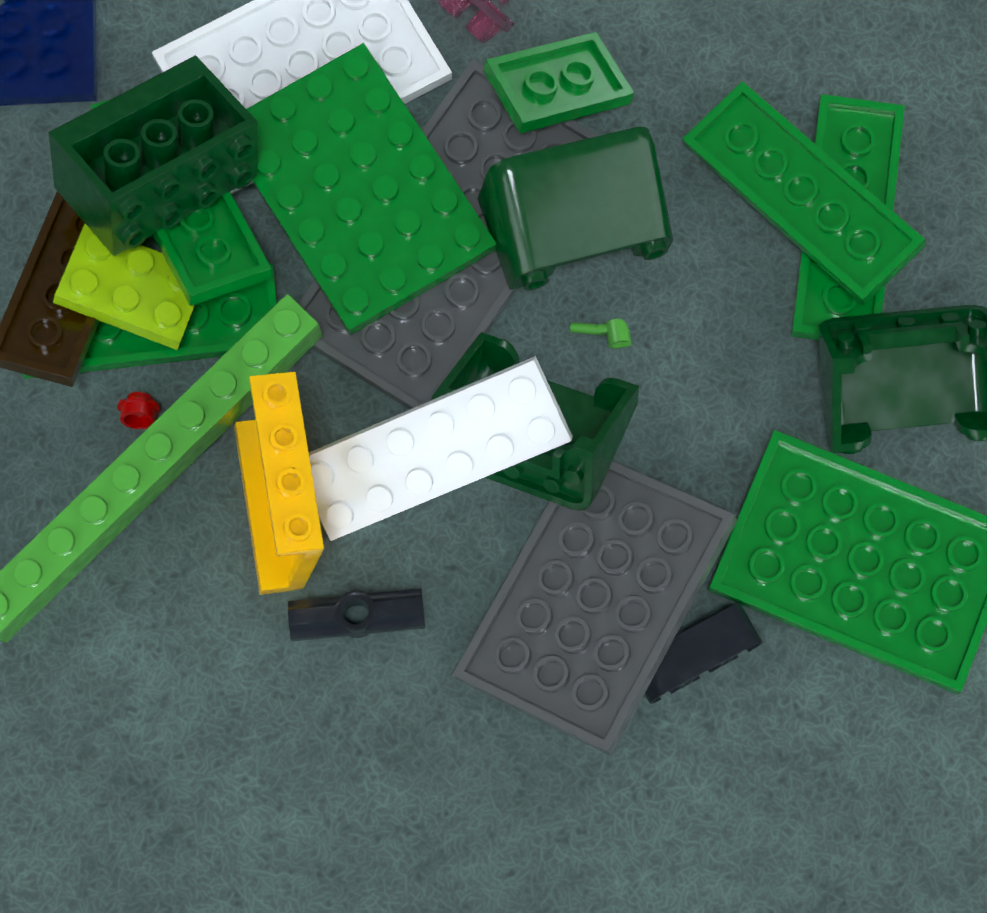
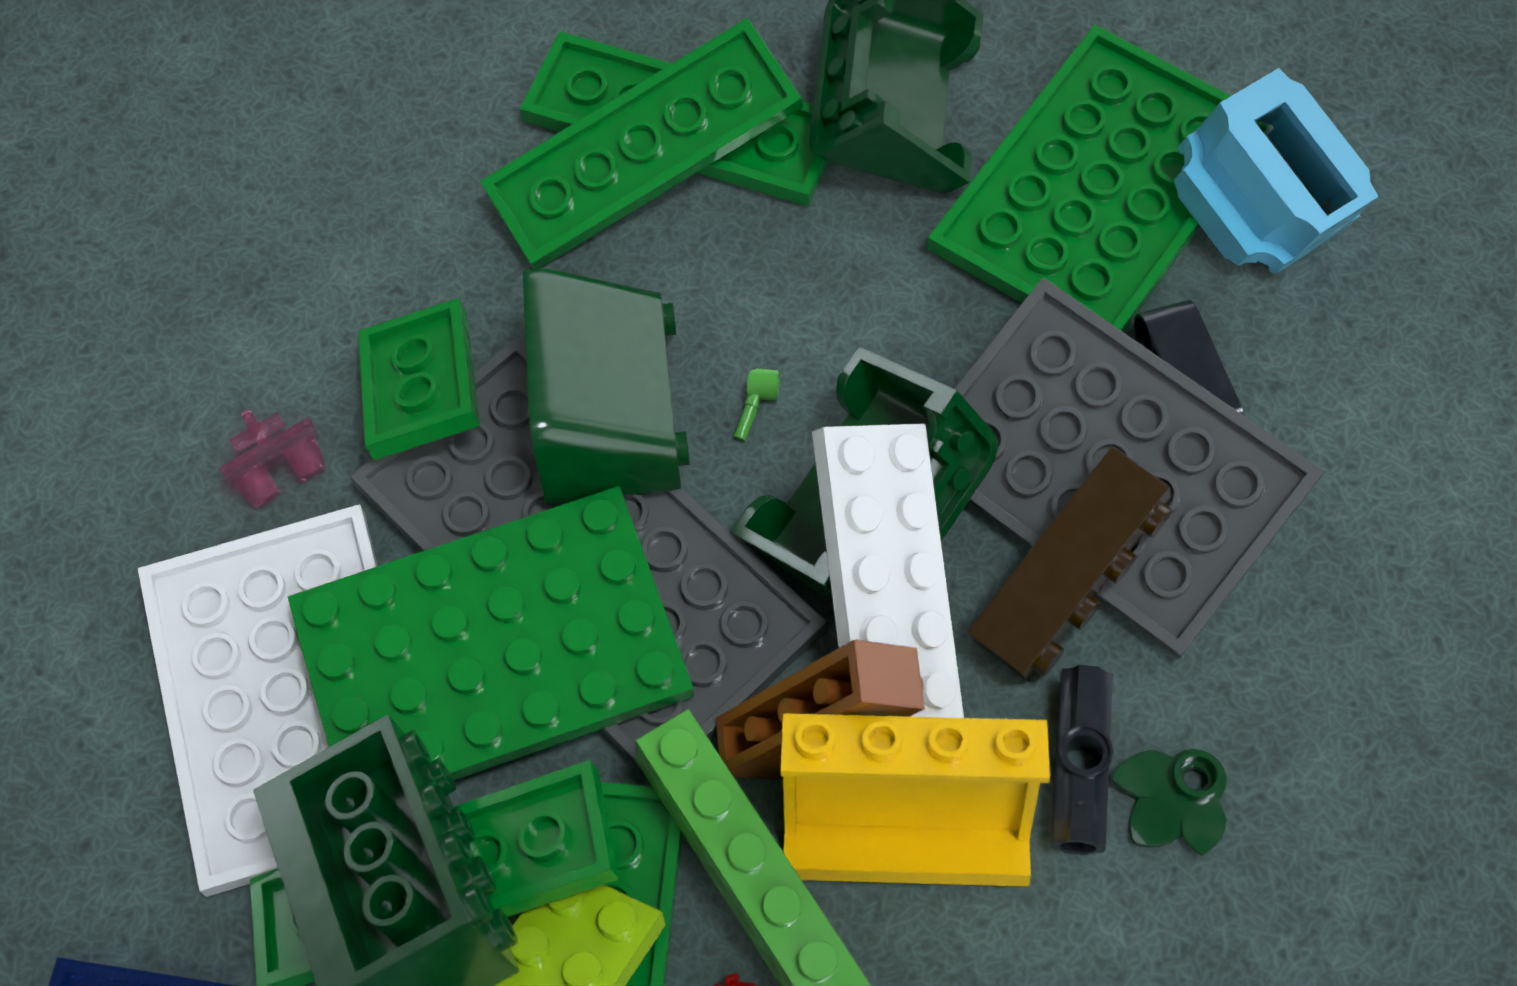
camera: 75 degrees left, 10 degrees down
(328, 412) = (849, 681): none -> dark orange brick
(339, 683) = (1170, 807): none -> dark green plate
(500, 579) = (1072, 564): none -> dark brown brick
(863, 662) = (1247, 191): none -> medium azure piece

